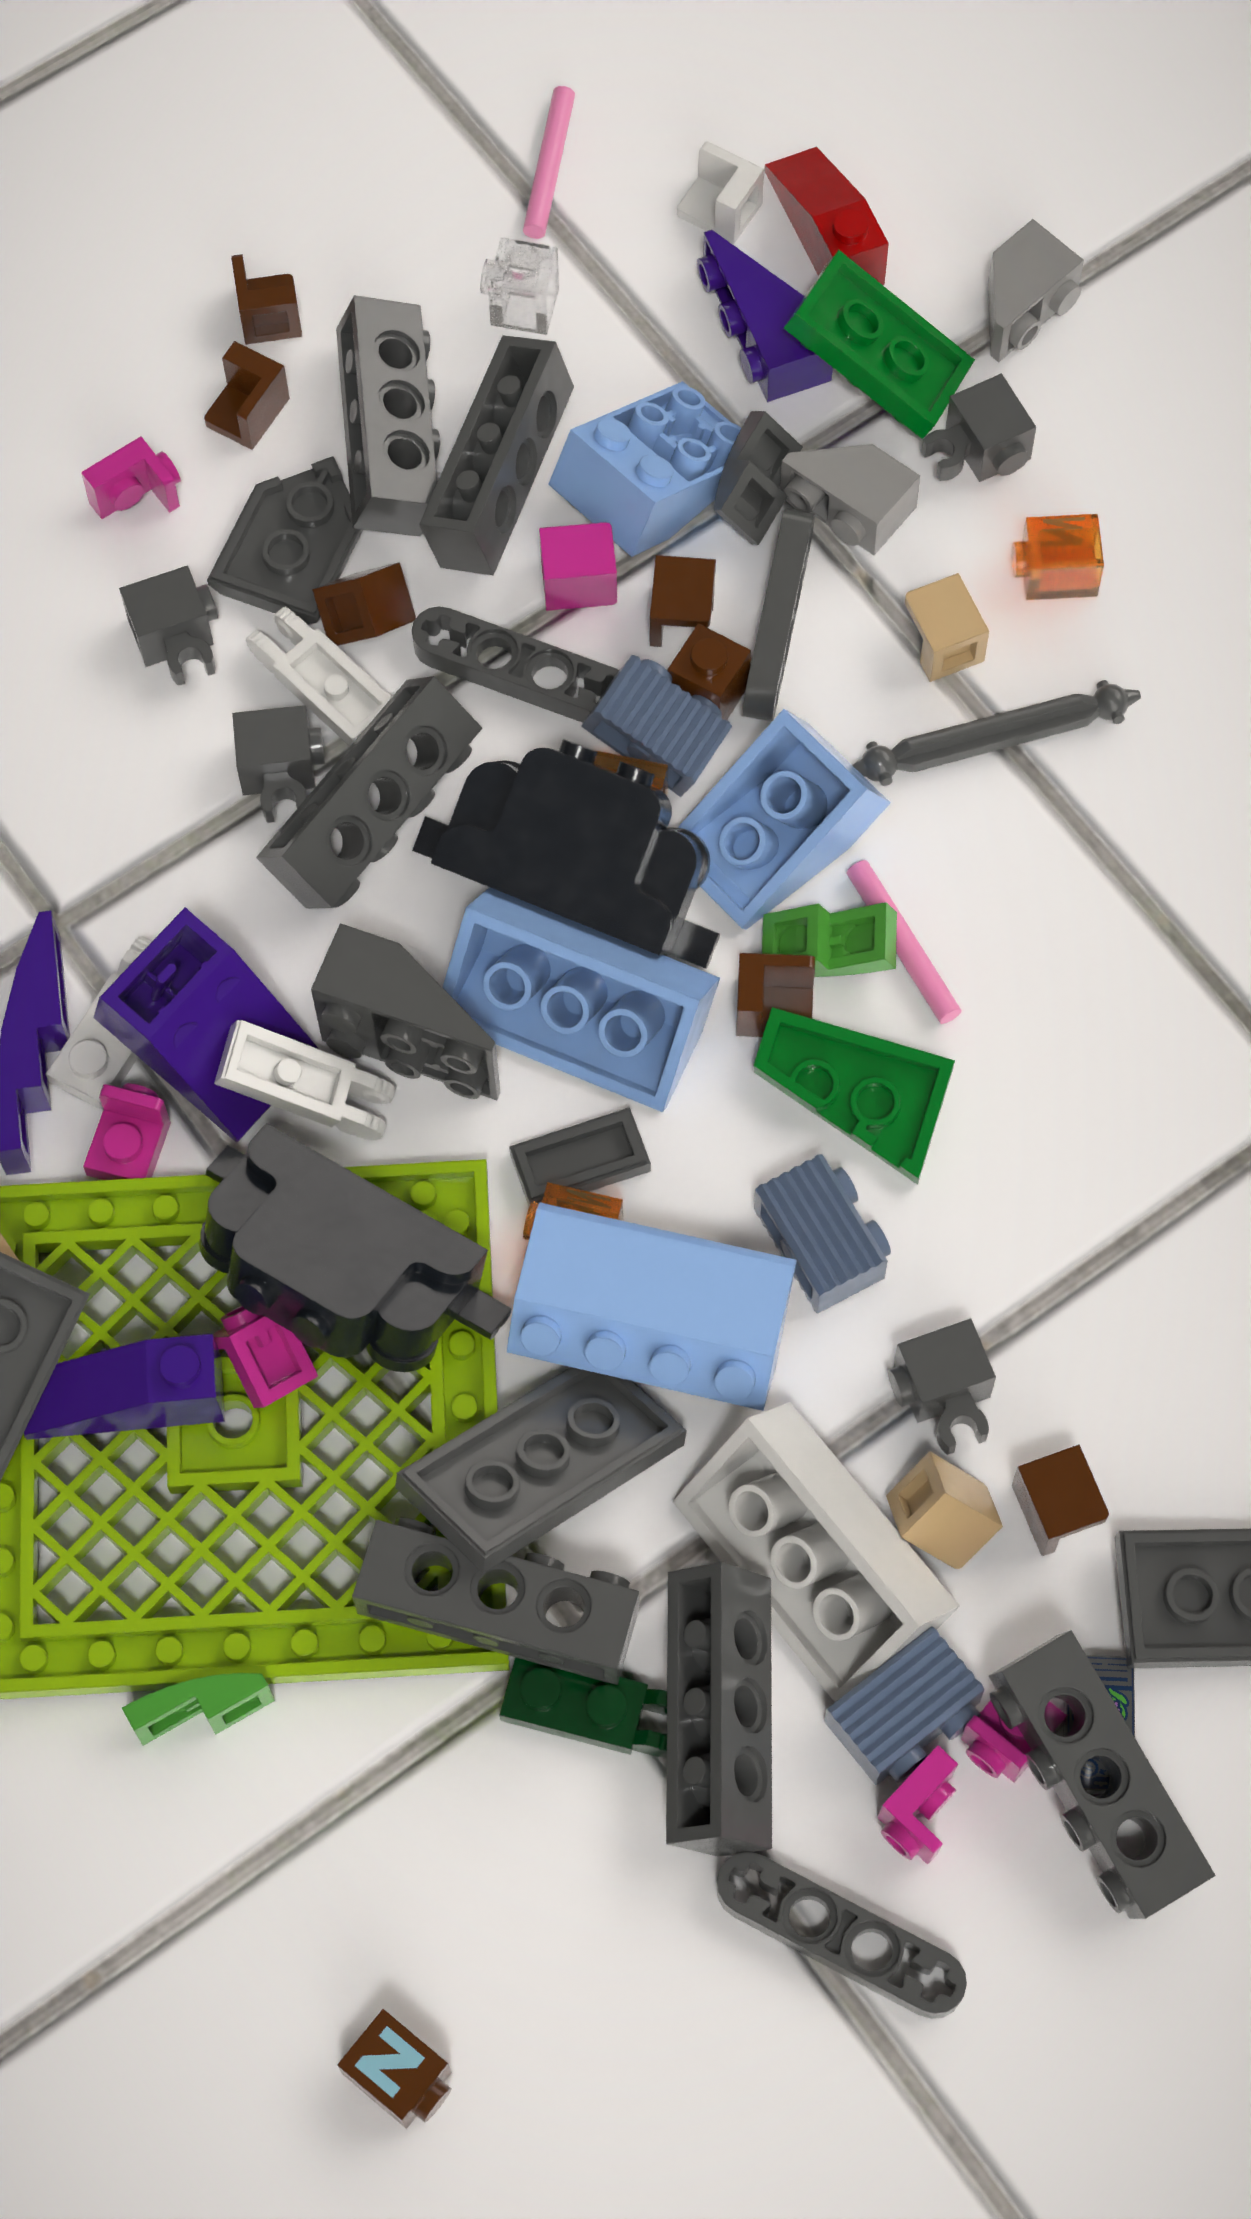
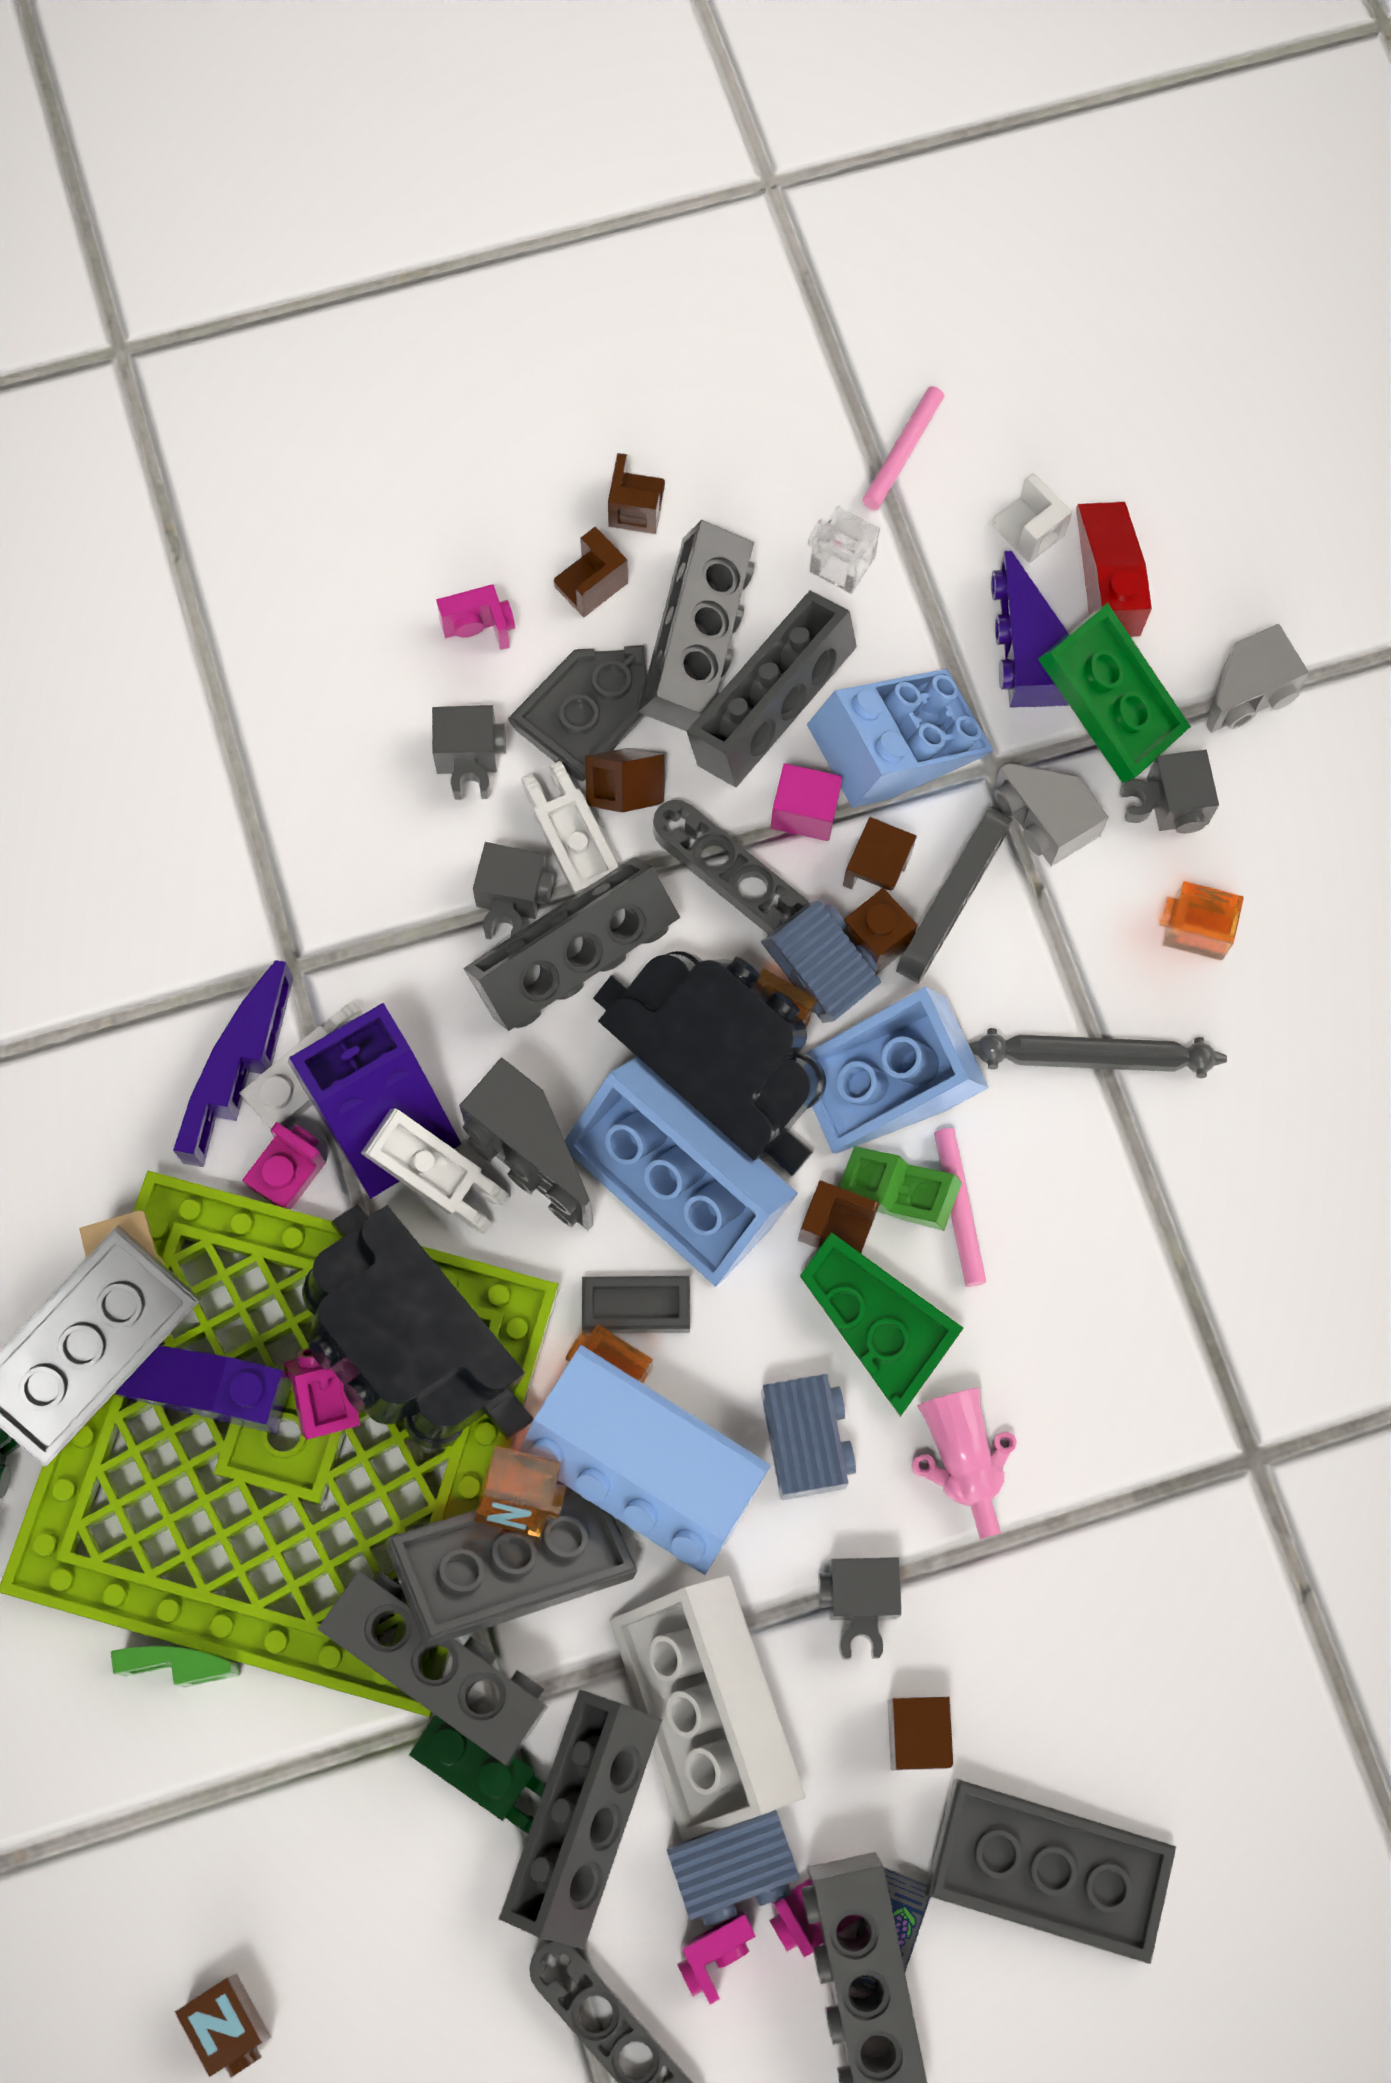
camera: 15 degrees right, 5 degrees up
(526, 1381) = (519, 1492): none -> clear orange brick
(751, 477) = (968, 776): dark grey slope -> none
(944, 1511) = (822, 1708): tan panel -> none
(949, 625) = (1087, 950): tan panel -> none
(1001, 1189) = (970, 1471): none -> bright pink piece

